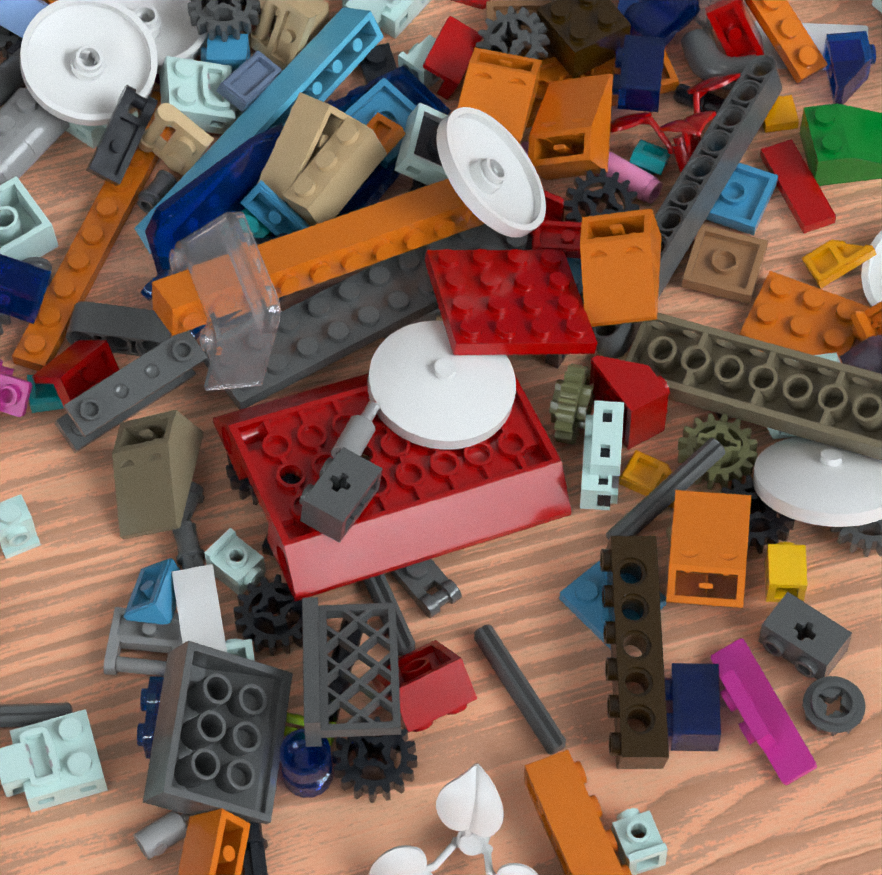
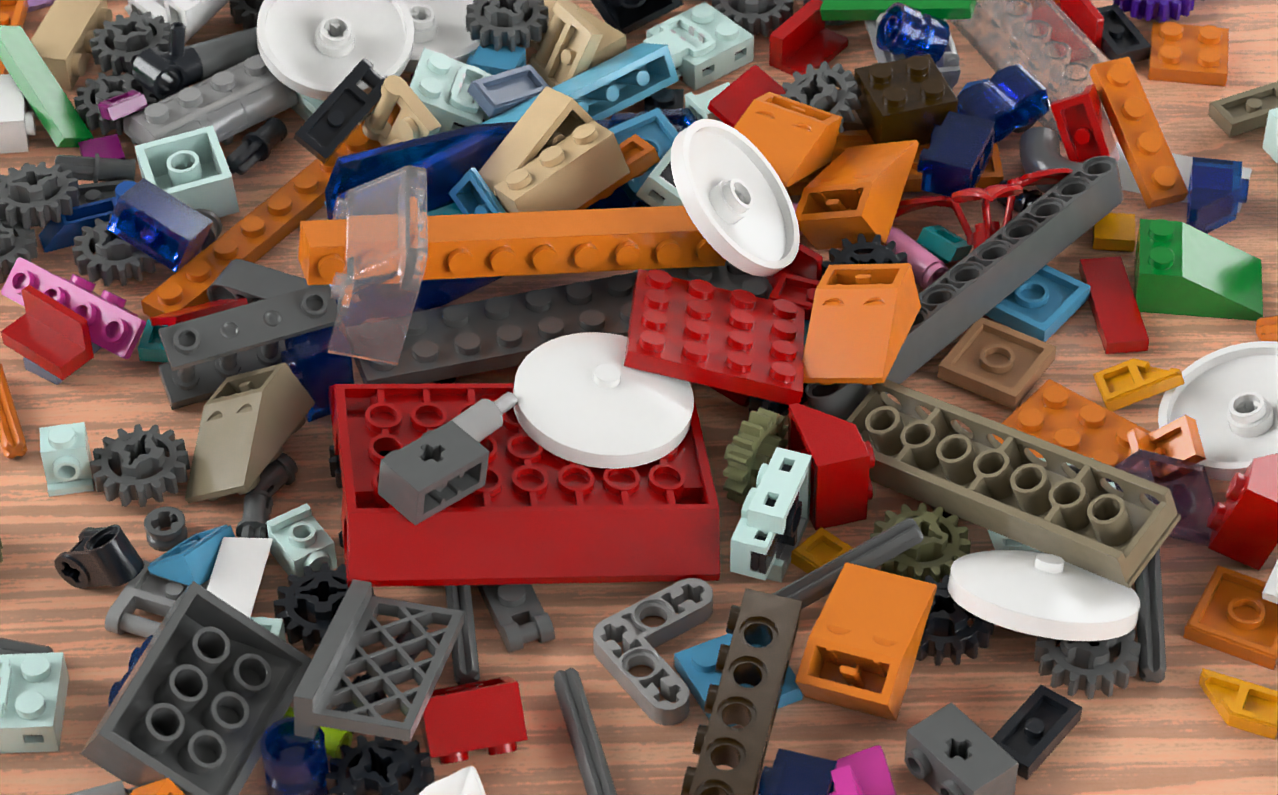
camera: 15 degrees right, 15 degrees down
(50, 176) = (256, 146): none -> black axle
(79, 614) = (100, 559): none -> black piece
(89, 525) = (140, 465): none -> dark grey gear
(116, 581) = (162, 518): none -> dark grey bush
(192, 400) = (316, 368): none -> clear blue brick
(528, 583) = (640, 644): none -> light grey beam
(785, 571) = (961, 680): yellow brick -> none
(851, 593) = (1037, 728): none -> black plate

